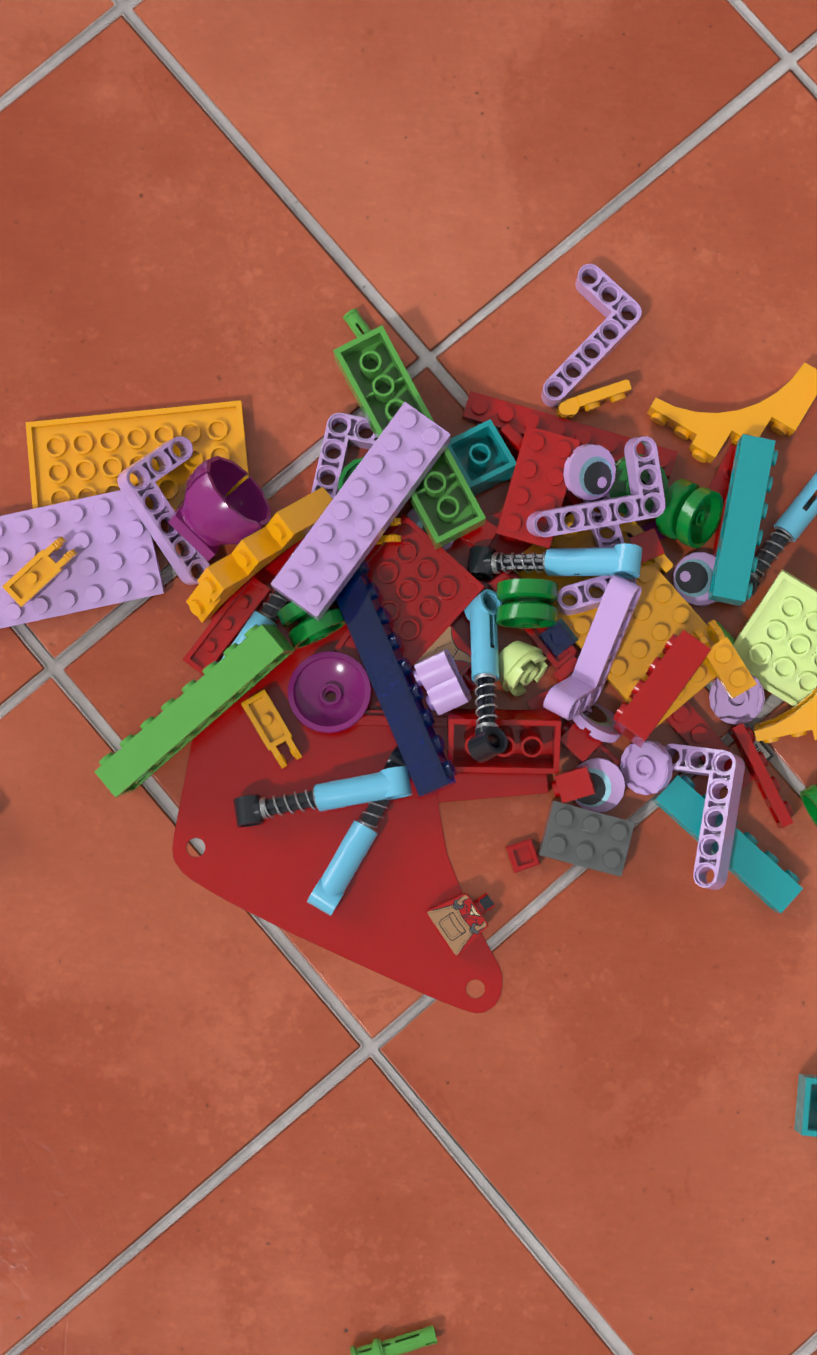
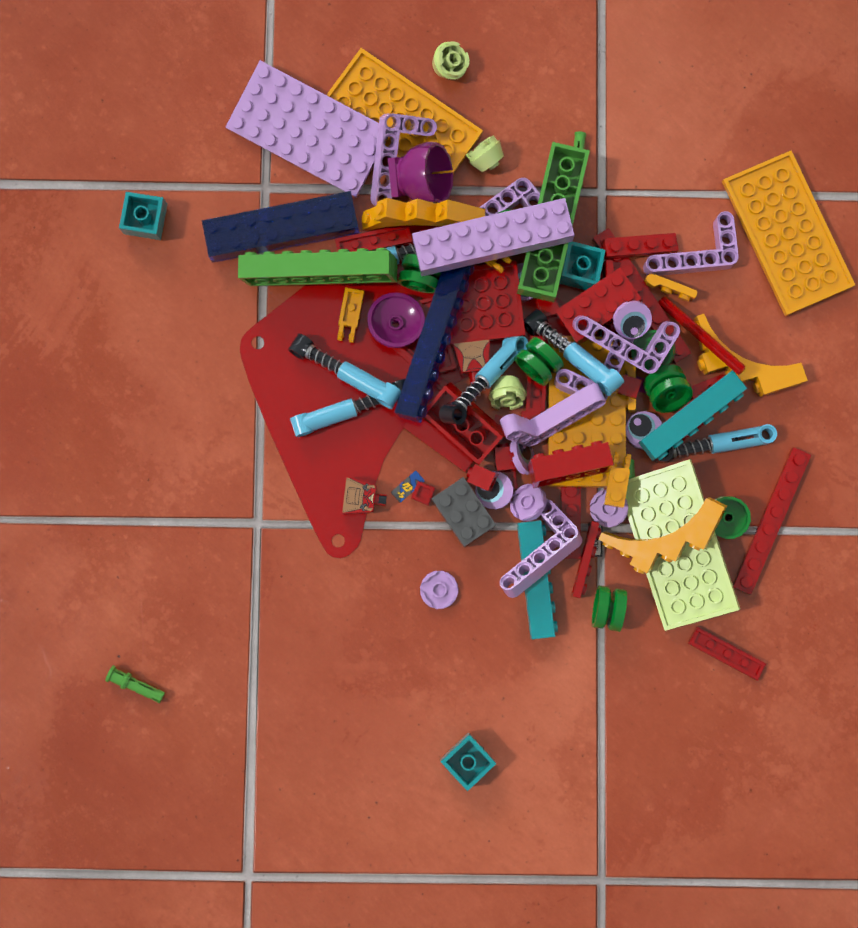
camera: 40 degrees right, 0 degrees up
(37, 573) = (299, 129): light orange hinge -> none
(109, 698) = (280, 226): none -> clear blue brick
(139, 353) = (450, 60): none -> yellowish green cone
(268, 424) = (486, 154): none -> yellowish green cone
(442, 681) = (458, 364): lavender brick -> none
(498, 863) = (407, 486): none -> sticker
(522, 381) = (640, 245): none -> red plate
(558, 637) = (541, 395): clear blue plate -> none
(631, 946) = (439, 589): none -> lavender tile
(667, 233) = (788, 233): none -> light orange plate
(688, 424) = (699, 333): none -> red axle

